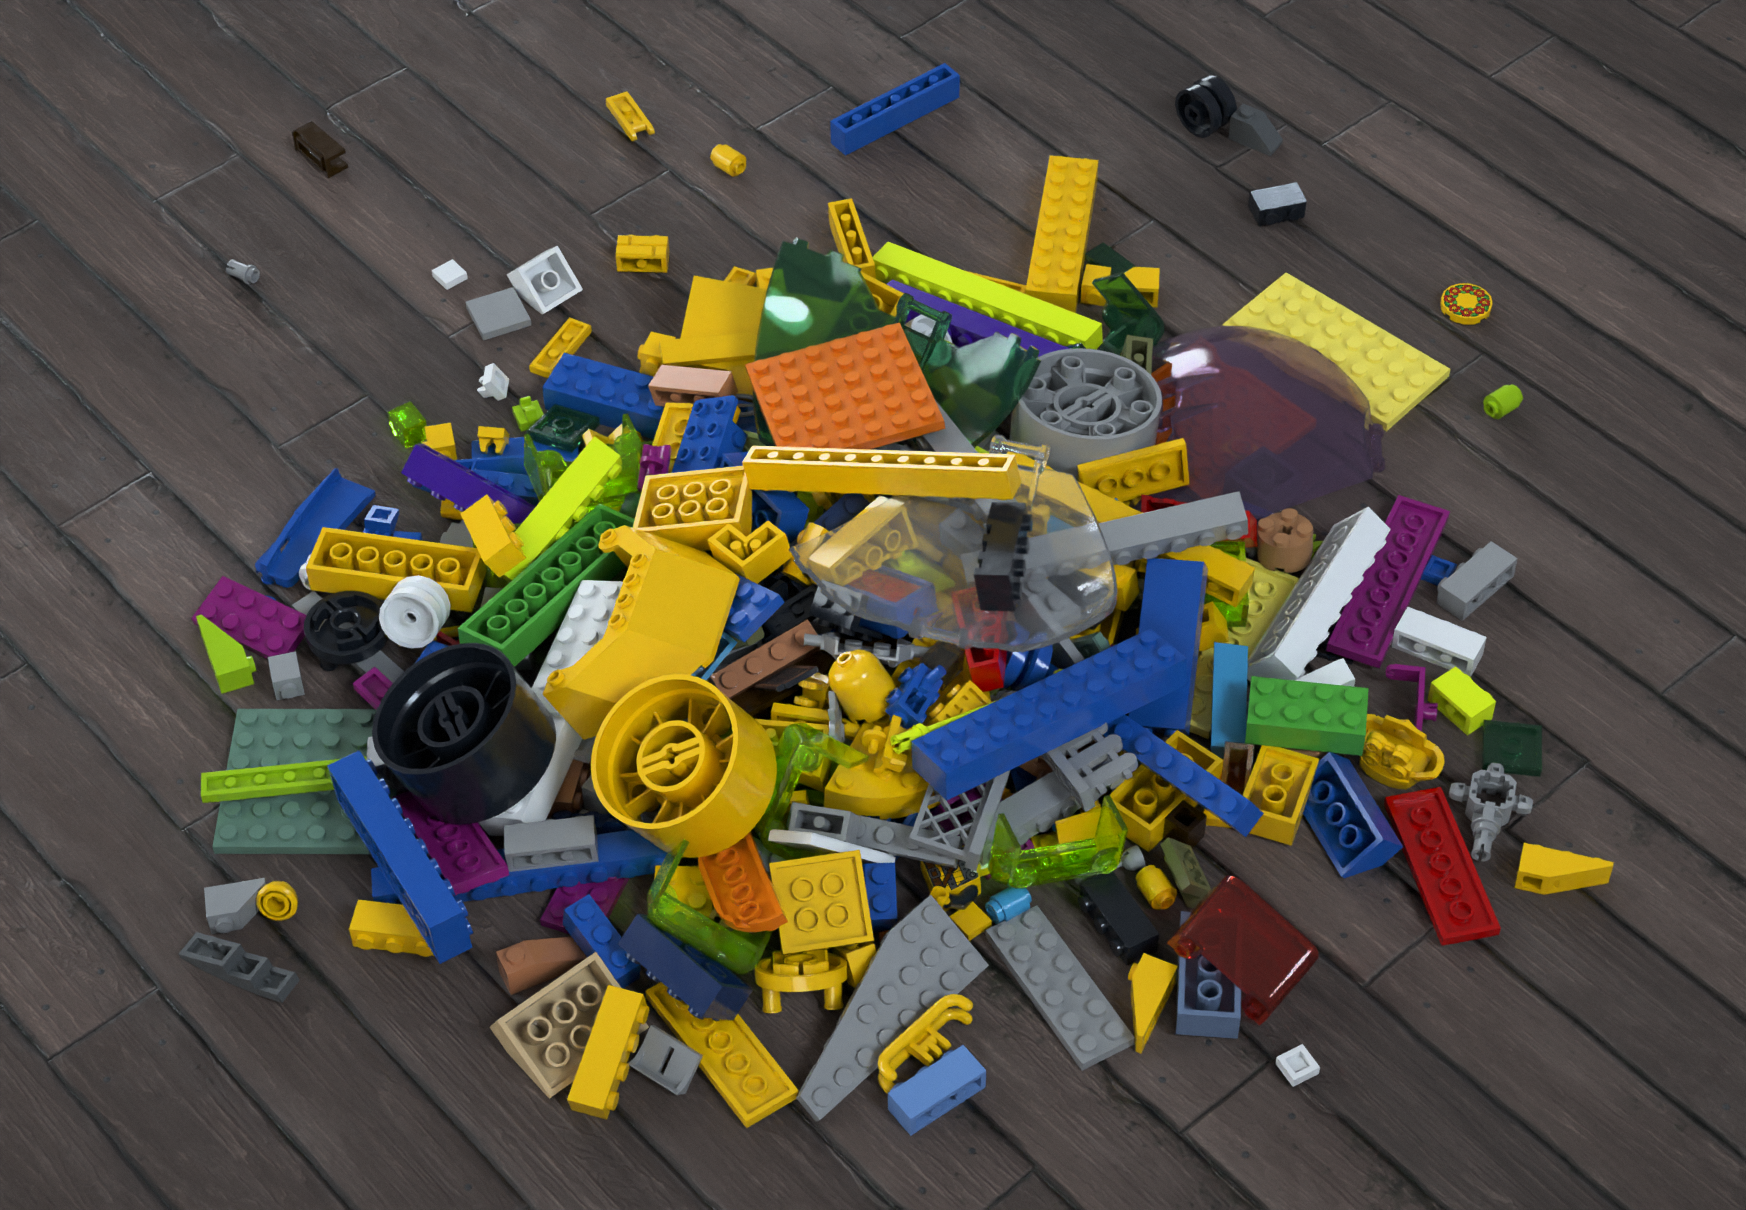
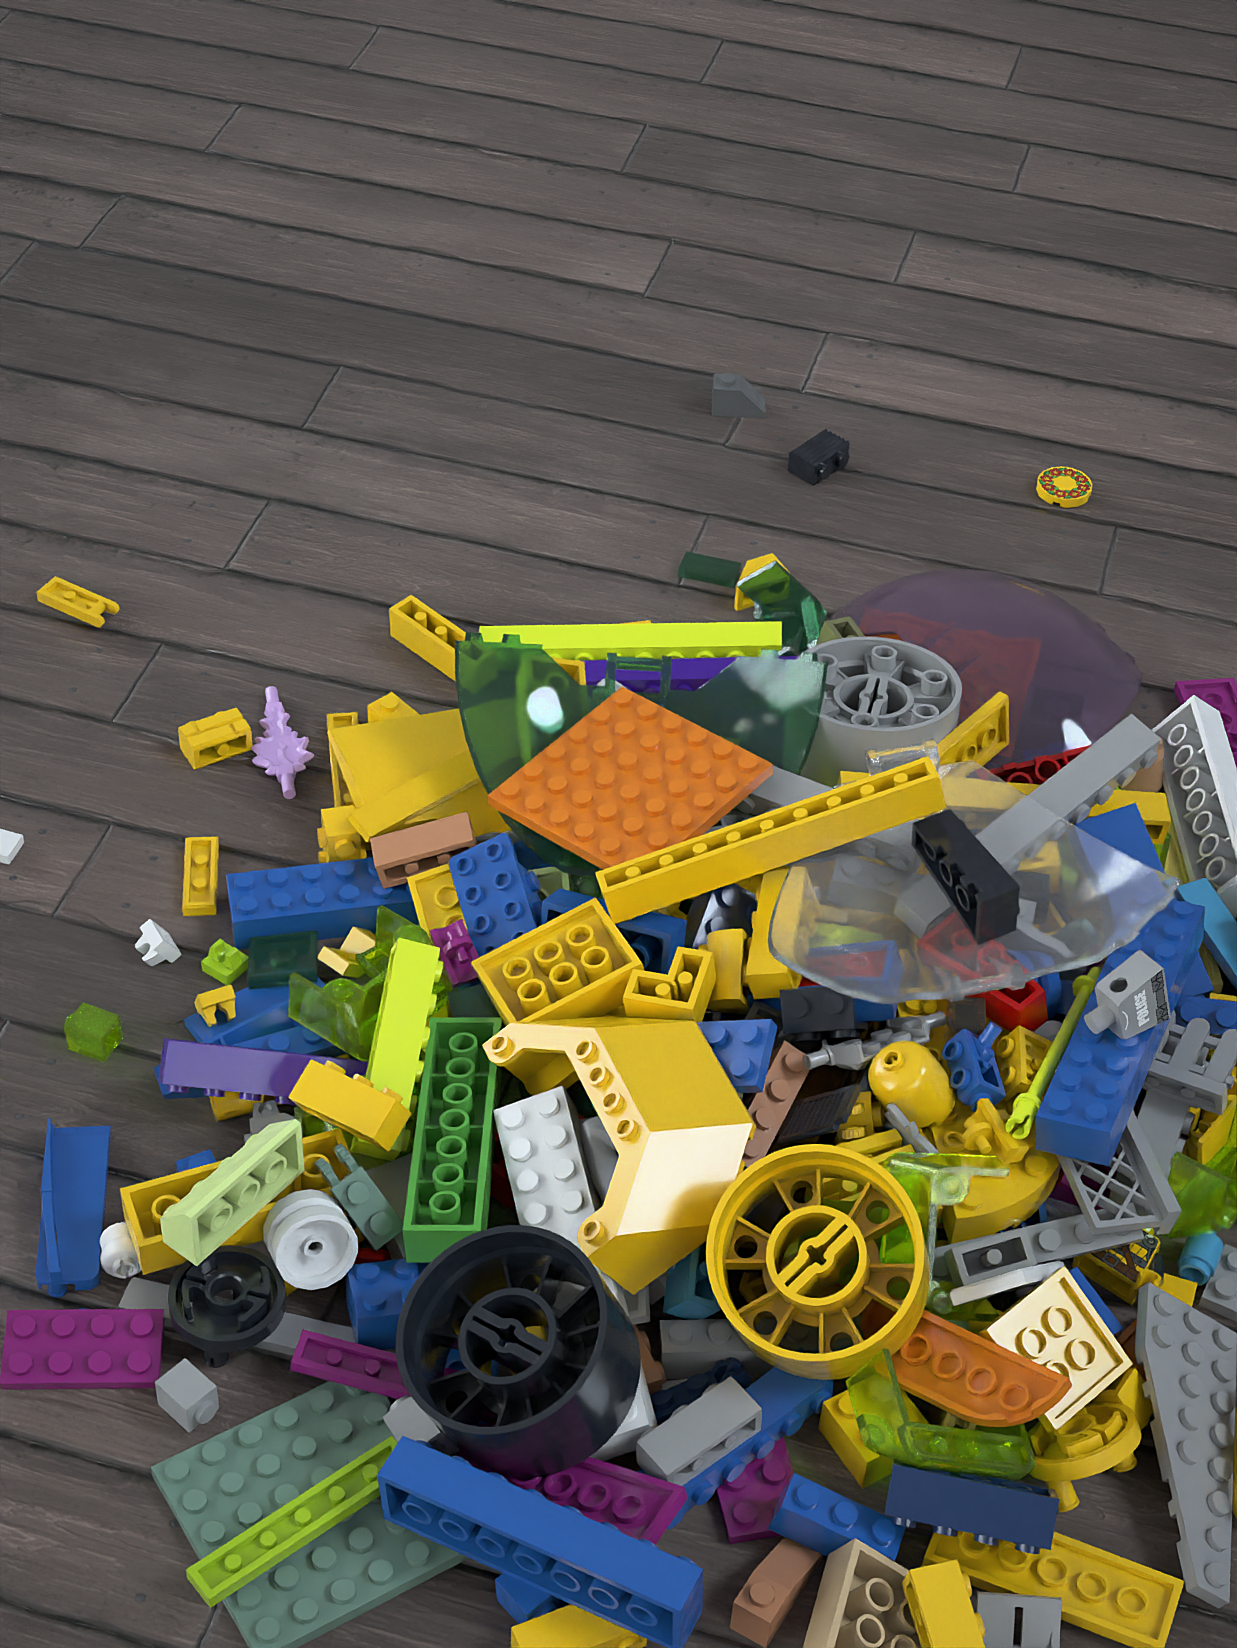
camera: 35 degrees left, 5 degrees down
(227, 657) = (83, 1408): lime slope -> none
(379, 559) = (234, 1191): none -> yellowish green slope
(381, 520) = (148, 1158): blue slope -> none
(441, 439) = (146, 1036): yellow brick -> none
(457, 594) = (361, 1200): none -> sand green hinge
(498, 313) = (95, 866): light grey tile -> none
(545, 280) = (125, 808): white slope -> none
(679, 280) = (280, 749): none -> lavender piece
(728, 160) = (228, 607): yellow brick -> none
(894, 109) = (368, 496): blue brick -> none
(1037, 691) = (1130, 998): none -> light grey torso
(1063, 231) = (641, 552): yellow brick -> none
(1089, 293) = (718, 594): yellow brick -> none
(1205, 106) = (679, 388): black wheel -> none
(1381, 365) = (1062, 568): light yellow plate -> none
(1502, 401) = (1181, 561): lime brick -> none

